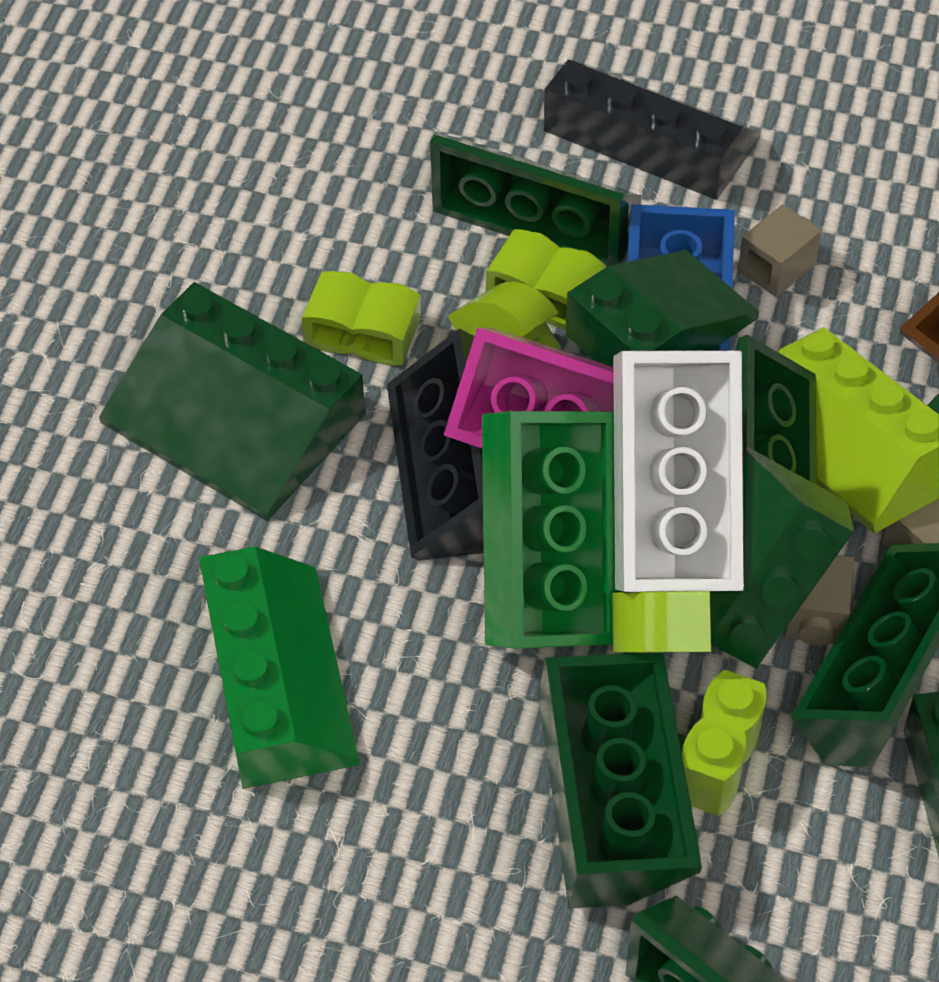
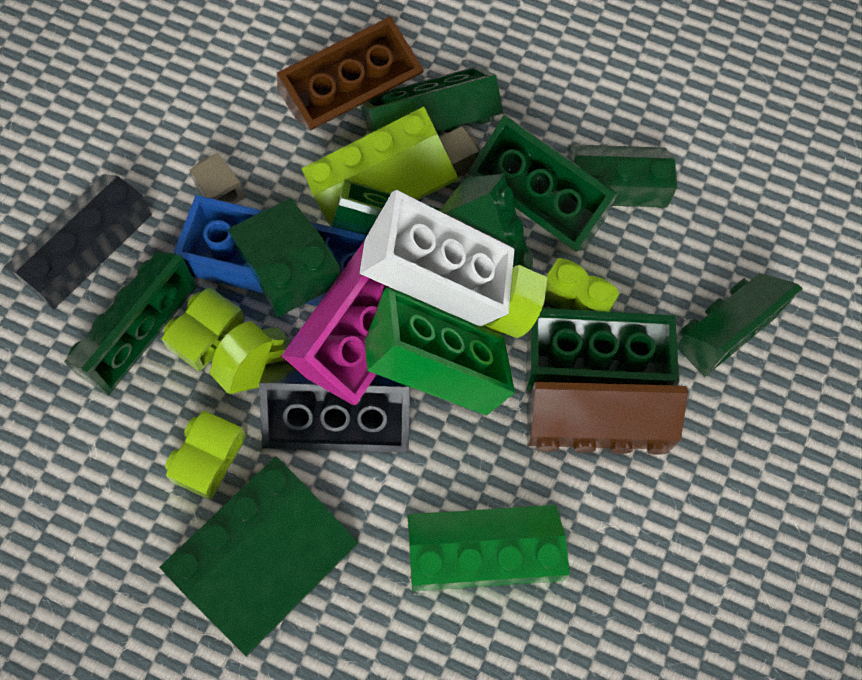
camera: 85 degrees left, 15 degrees up
(502, 795) = (605, 417): none -> reddish brown slope

